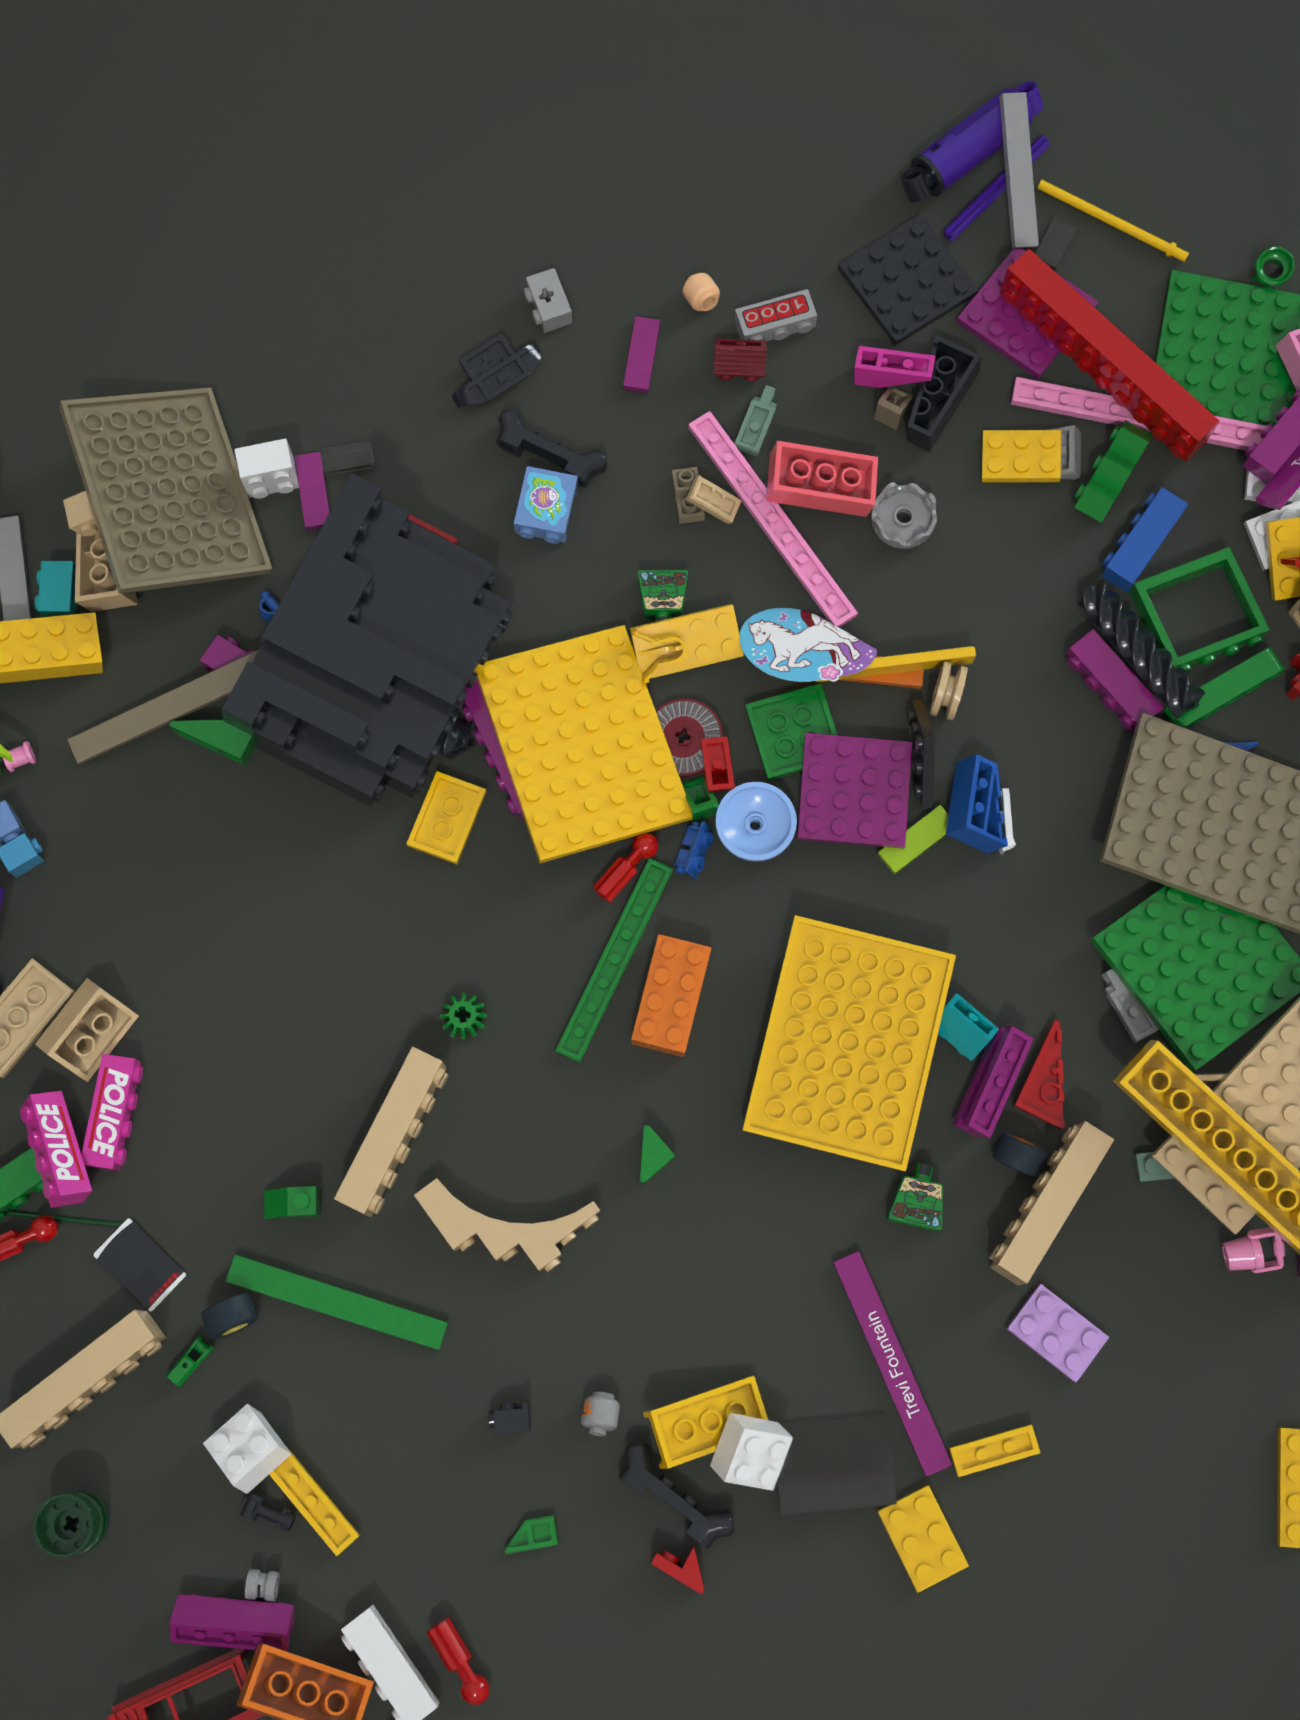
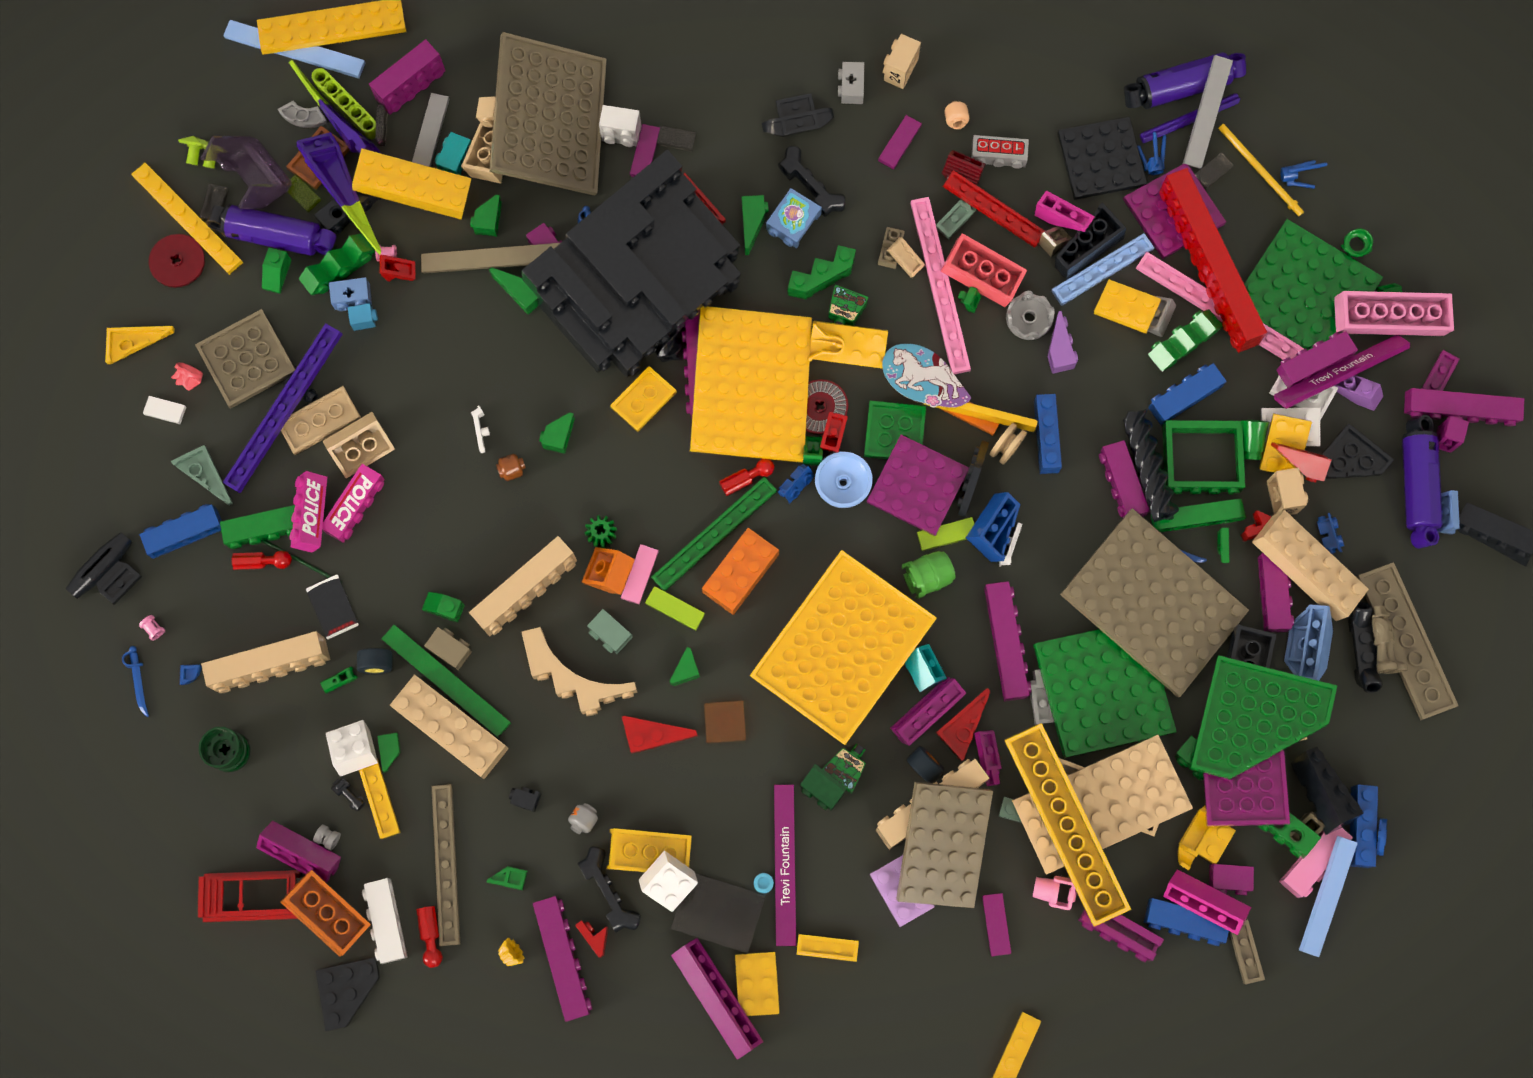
camera: 25 degrees right, 0 degrees up
(41, 771) = (396, 268): none -> red slope
(137, 657) = (487, 217): none -> green slope
(246, 947) = (480, 432): none -> white piece
(298, 1428) = (389, 749): none -> green tile
(306, 978) = (510, 467): none -> dark orange head
(323, 1257) = (448, 648): none -> dark tan brick
(351, 909) = (557, 434): none -> green slope
(367, 1364) = (449, 726): none -> tan brick
(440, 1554) = (445, 865): none -> dark tan tile
(491, 519) = (753, 218): none -> green slope
(495, 1064) = (608, 570): none -> orange slope
(530, 1146) = (609, 631): none -> sand green brick
(538, 1053) = (639, 574): none -> bright pink tile
(579, 1637) = (510, 953): none -> yellow piece
(601, 248) = (901, 61): none -> tan brick
(604, 1079) = (675, 608): none -> lime tile
(615, 563) = (823, 274): none -> green brick
(638, 1263) = (648, 734): none -> red wing
(651, 1617) = (561, 958): none -> magenta brick
(733, 1204) = (725, 722): none -> clear orange tile
(800, 394) = (993, 208): none -> red tile
(818, 523) = (970, 299): none -> green tile
(874, 1399) = (763, 883): none -> medium azure tile
(880, 1582) = (717, 998): none -> magenta brick
(900, 1240) = (822, 788): none -> dark green slope
(918, 901) = (928, 573): none -> bright green piece
(961, 545) = (1060, 353): none -> medium lavender slope
(969, 421) = (1102, 269): none -> light blue tile
(979, 261) = (1156, 164): none -> blue plant
(991, 659) = (1047, 434): none -> blue brick
(1054, 949) = (1006, 641): none -> magenta brick
(1092, 1251) = (944, 845): none -> dark tan plate
(1094, 1106) = (988, 755): none -> magenta hinge
(1152, 210) = (1290, 173): none -> blue plant
(1197, 1326) = (996, 924): none -> magenta tile
(1253, 562) = (1254, 438): none -> green plant
(1272, 714) = (1223, 544): none -> green tile

